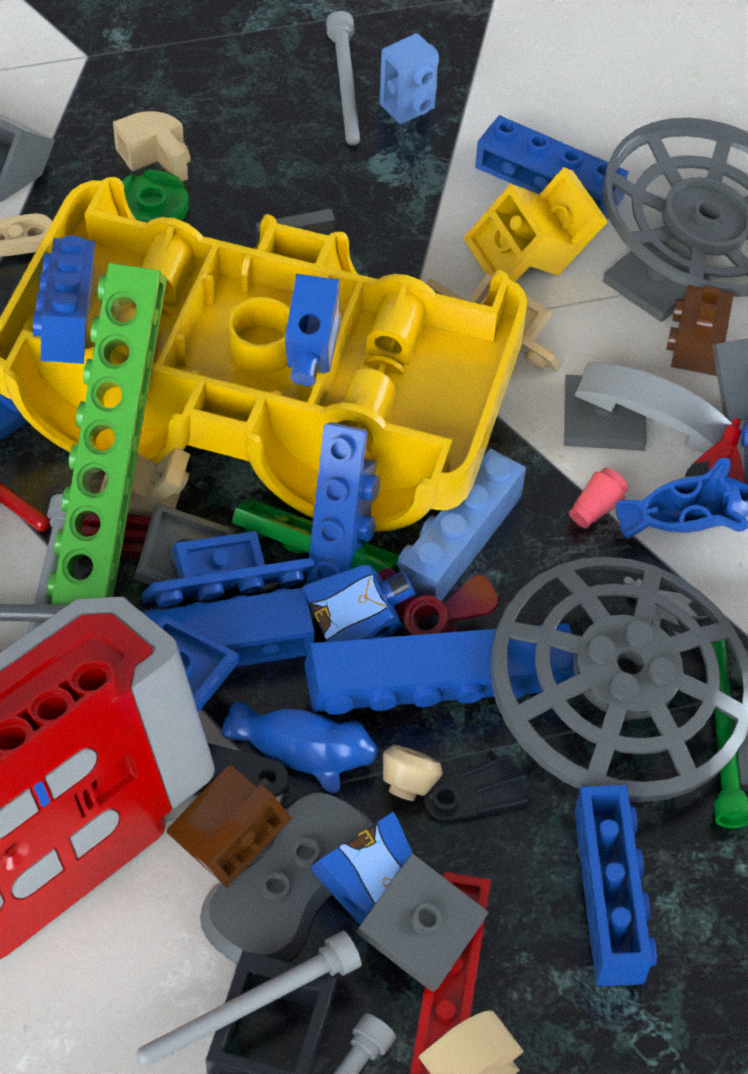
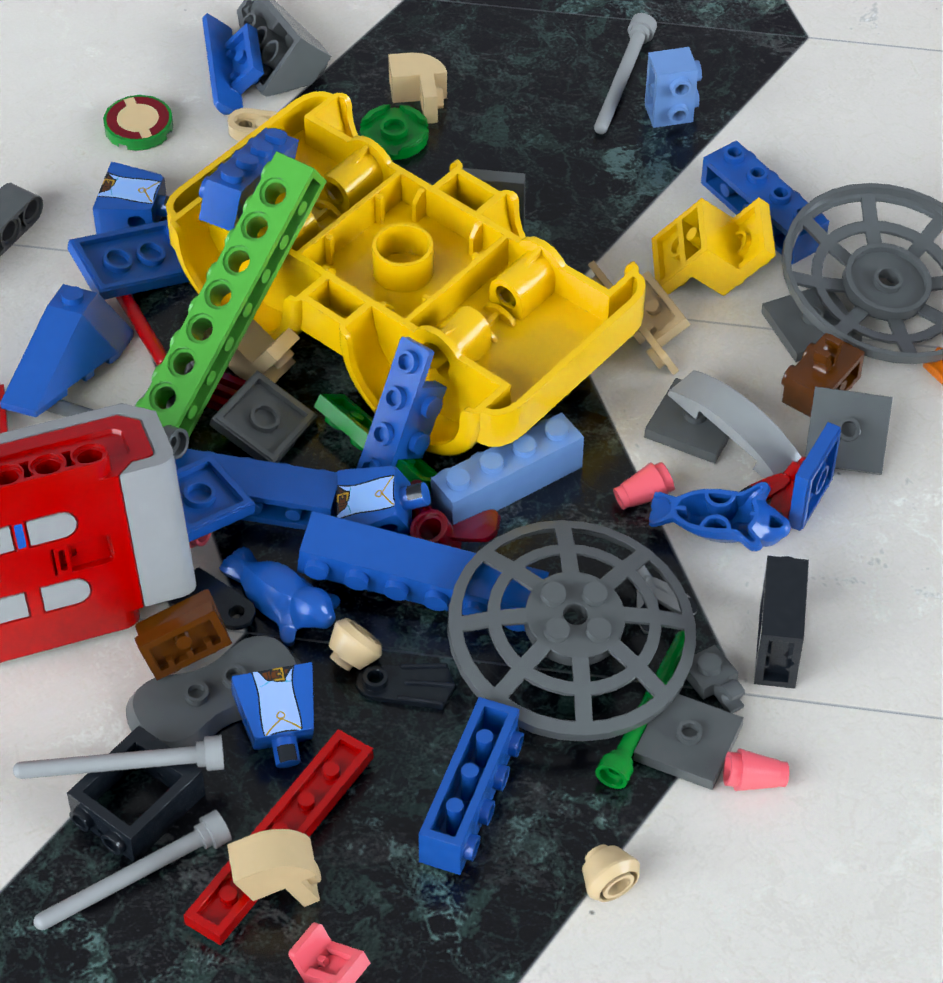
camera: 25 degrees right, 5 degrees down
(223, 564) = (282, 435): blue bracket -> none
(312, 327) = (431, 255): blue torso -> none
(422, 922) = (292, 755): dark grey plate -> none

